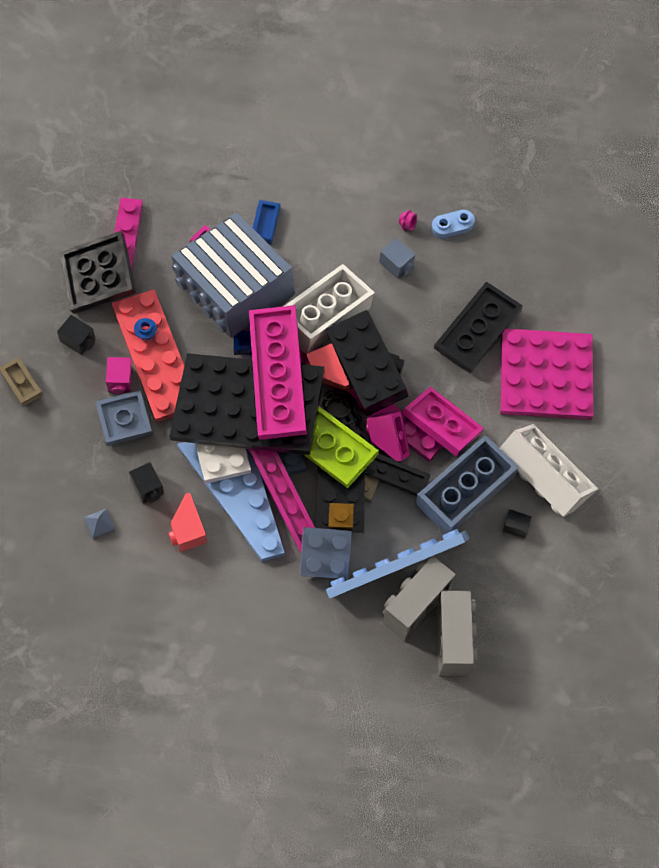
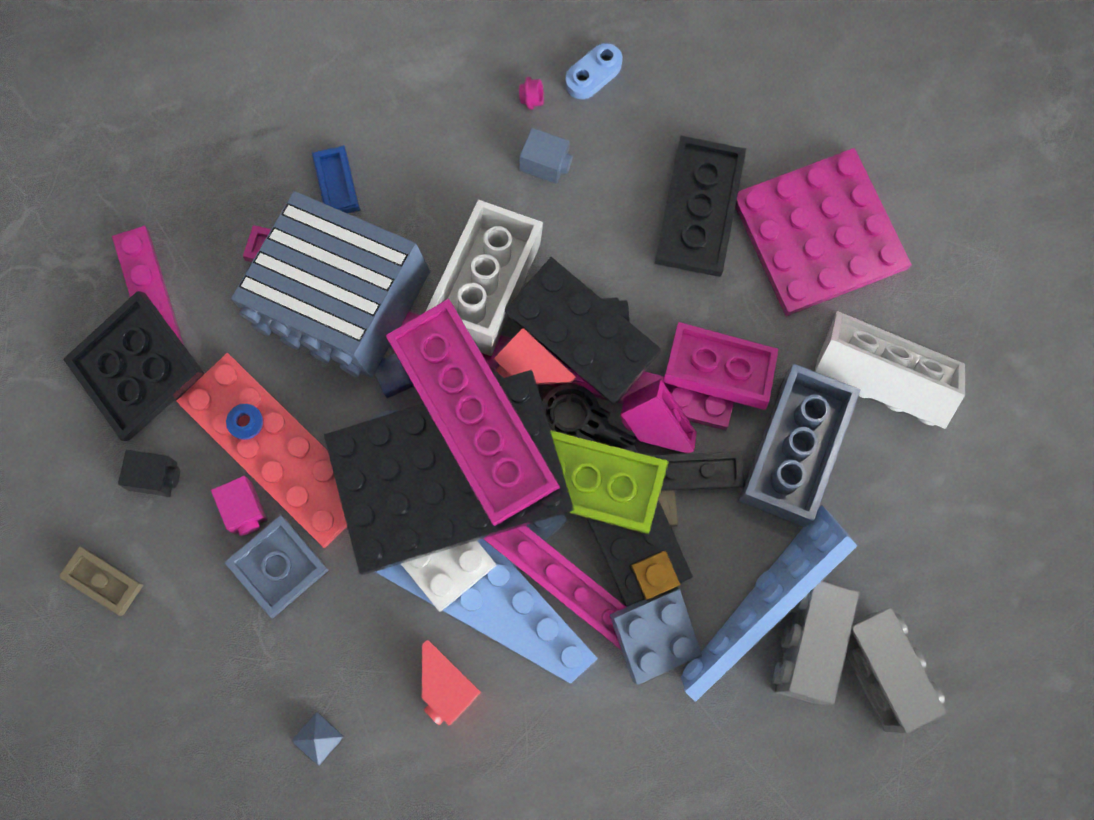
camera: 25 degrees left, 10 degrees up
(146, 483) = (357, 650): black brick -> none
(517, 523) = (885, 464): black slope -> none

